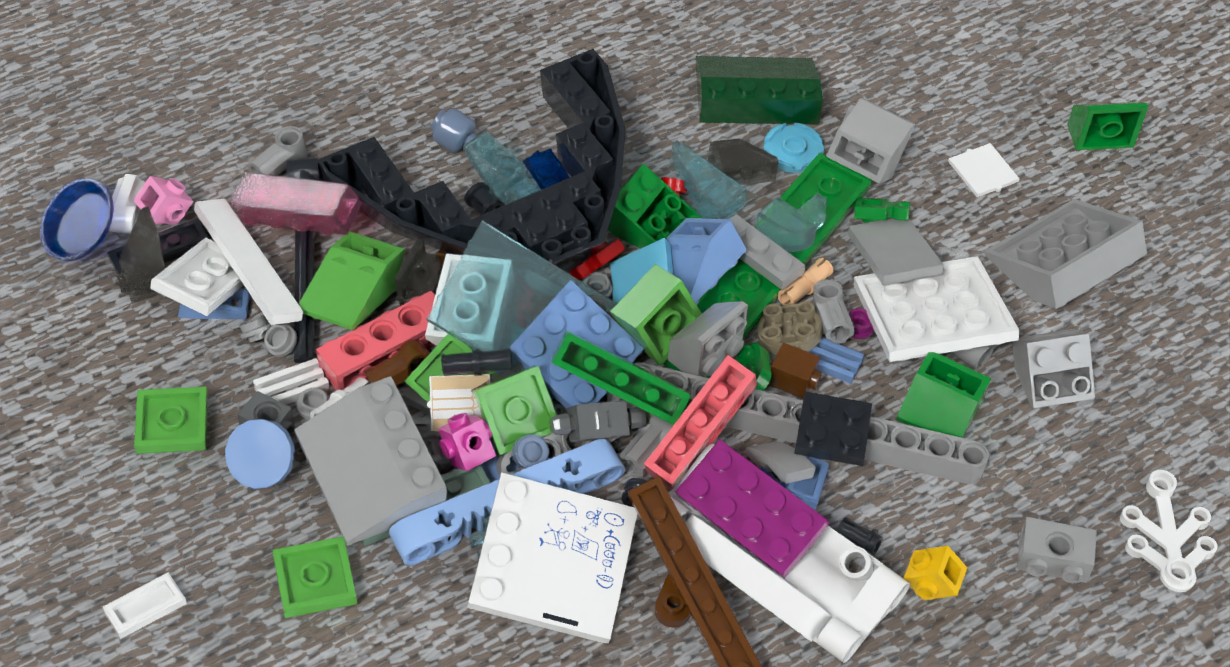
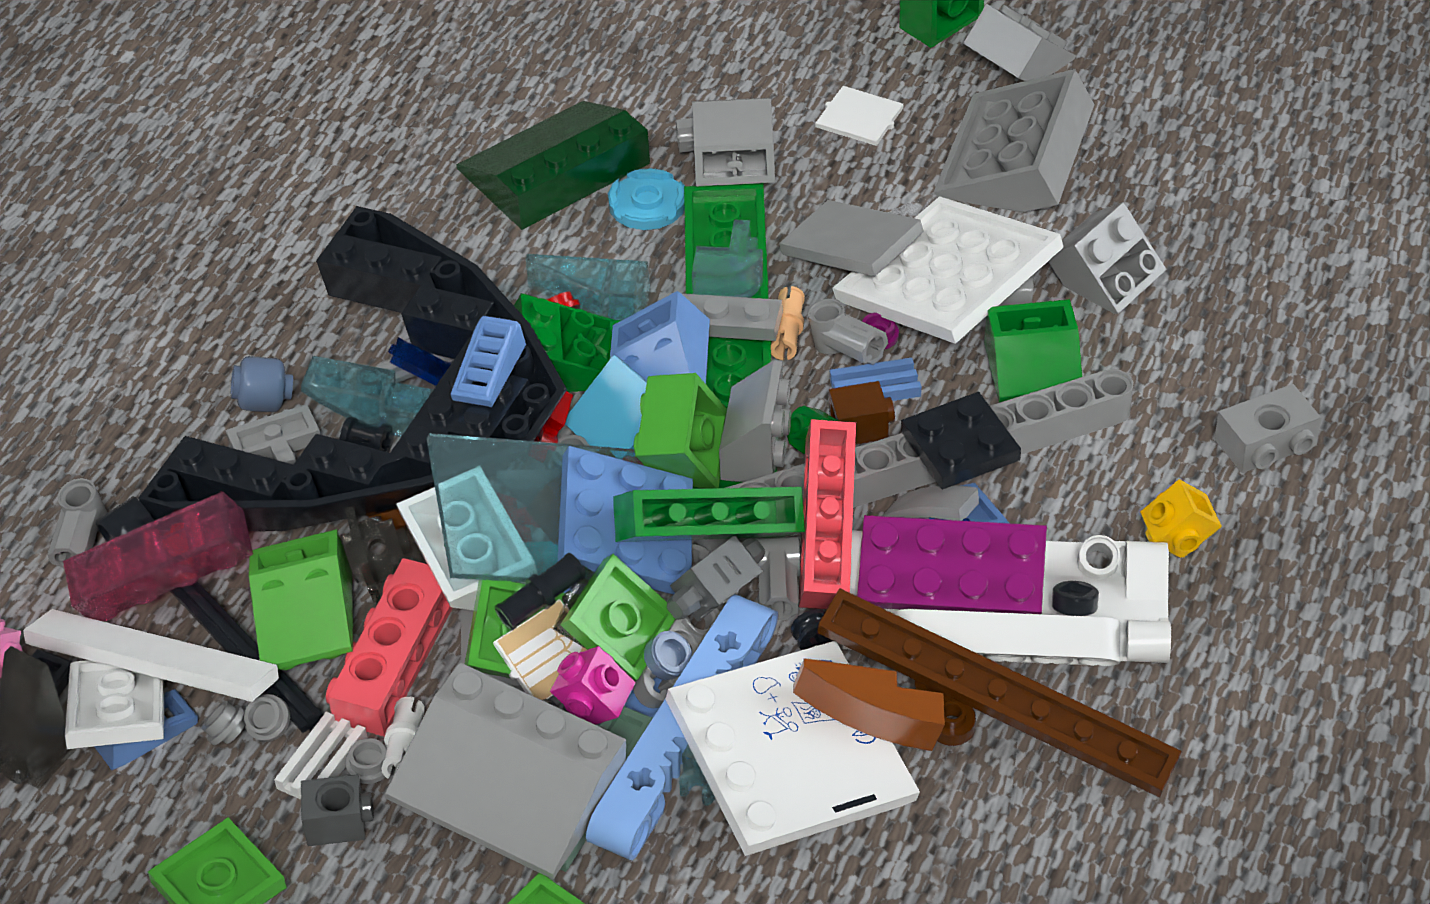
camera: 30 degrees left, 5 degrees down
(259, 453) = (363, 846): medium blue tile -> none
(399, 365) = (443, 647): reddish brown piece -> none
(433, 168) = (276, 434): none -> light grey plate
(582, 182) = (492, 336): none -> medium blue slope
(620, 563) = (872, 702): none -> dark orange slope
(743, 161) = (613, 236): clear smoke slope -> none
(789, 323) = (817, 369): dark tan tile -> none
(813, 580) = (1075, 598): none -> black tile
(860, 535) = (1072, 530): black pin -> none
(879, 209) = (793, 210): green plate -> none
(1131, 182) = (1017, 43): none -> light grey slope
(1168, 536) = (1388, 382): white plant -> none

